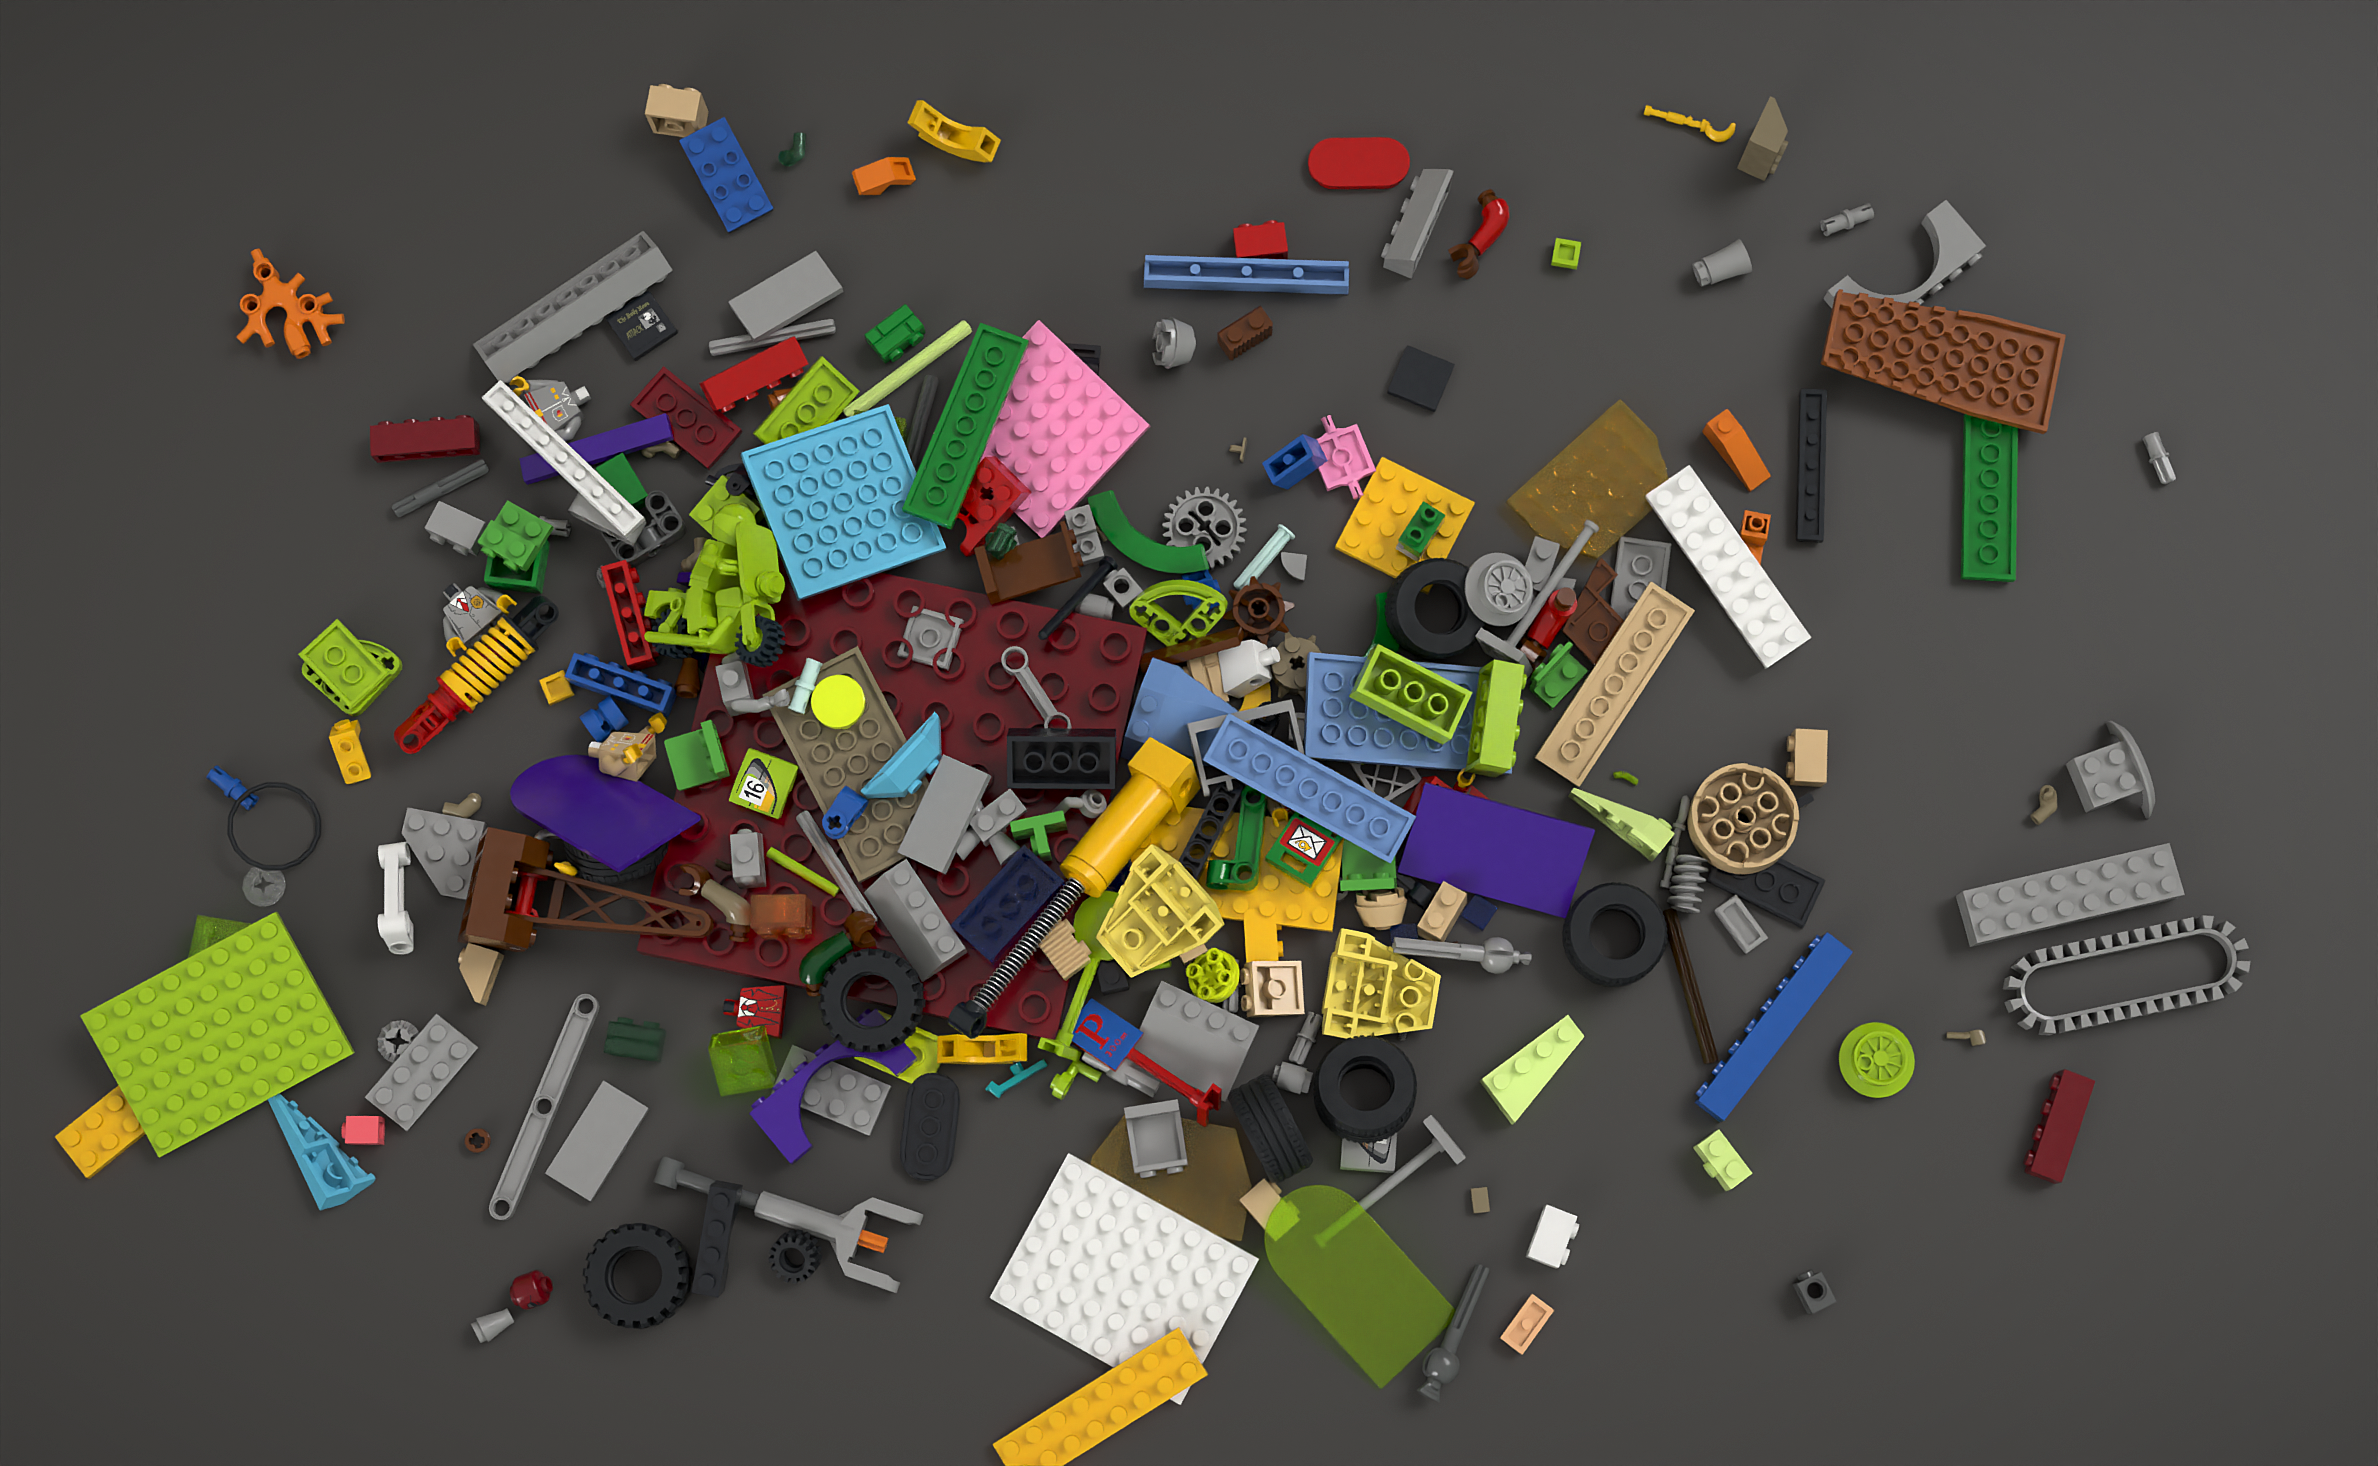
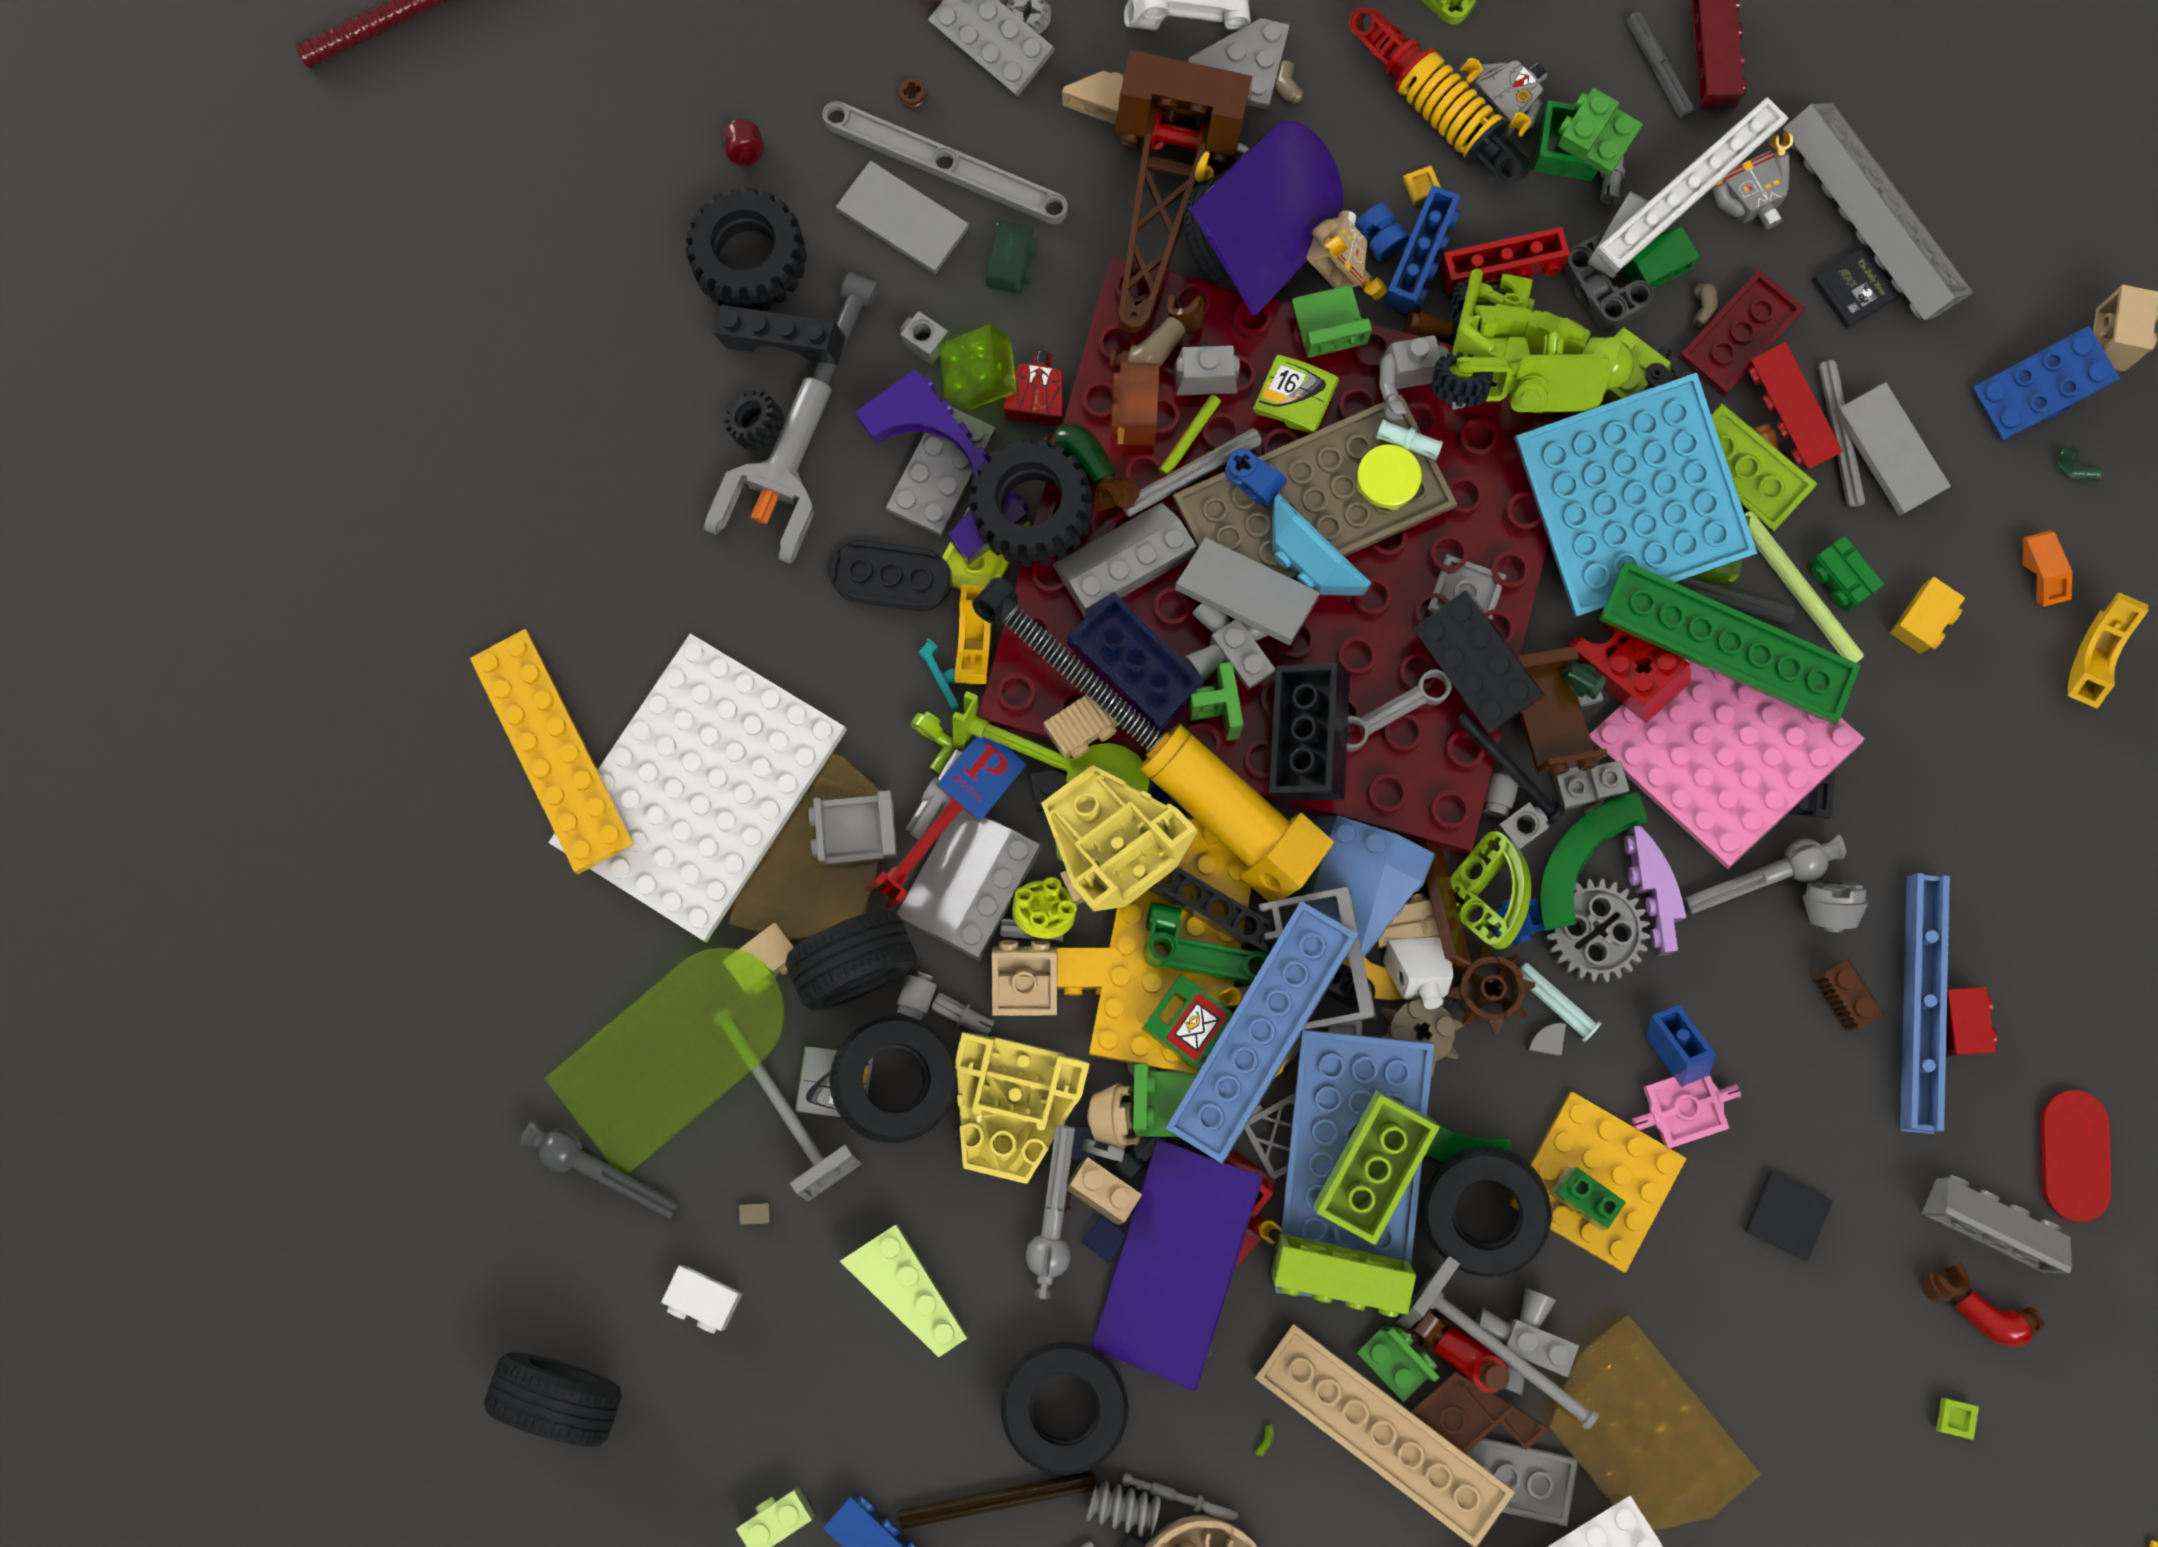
camera: 90 degrees right, 0 degrees up
(456, 528) = (1614, 72): light grey brick -> none
(491, 1325) = (708, 101): light grey cone -> none
(604, 446) = (1709, 242): dark purple tile -> none
(712, 1100) = (927, 349): none -> light grey brick
(928, 269) = (1928, 615): none -> yellow brick
(994, 624) = (1479, 661): none -> black brick
(1090, 803) = (1254, 758): light grey plate -> none
(1138, 367) = (1802, 860): none -> light grey piece
(1156, 484) = (1654, 876): none -> lavender slope
(1239, 449) = (1697, 983): dark tan piece -> none
(1409, 915) = (1103, 1150): none -> light grey tile
(1498, 589) = (1509, 1290): light grey wheel -> none
(1526, 1324) = (601, 1259): light nougat plate -> none
(1636, 828) = (1197, 1449): yellowish green wedge -> none
(1643, 1345) = (552, 1399): none -> black tyre

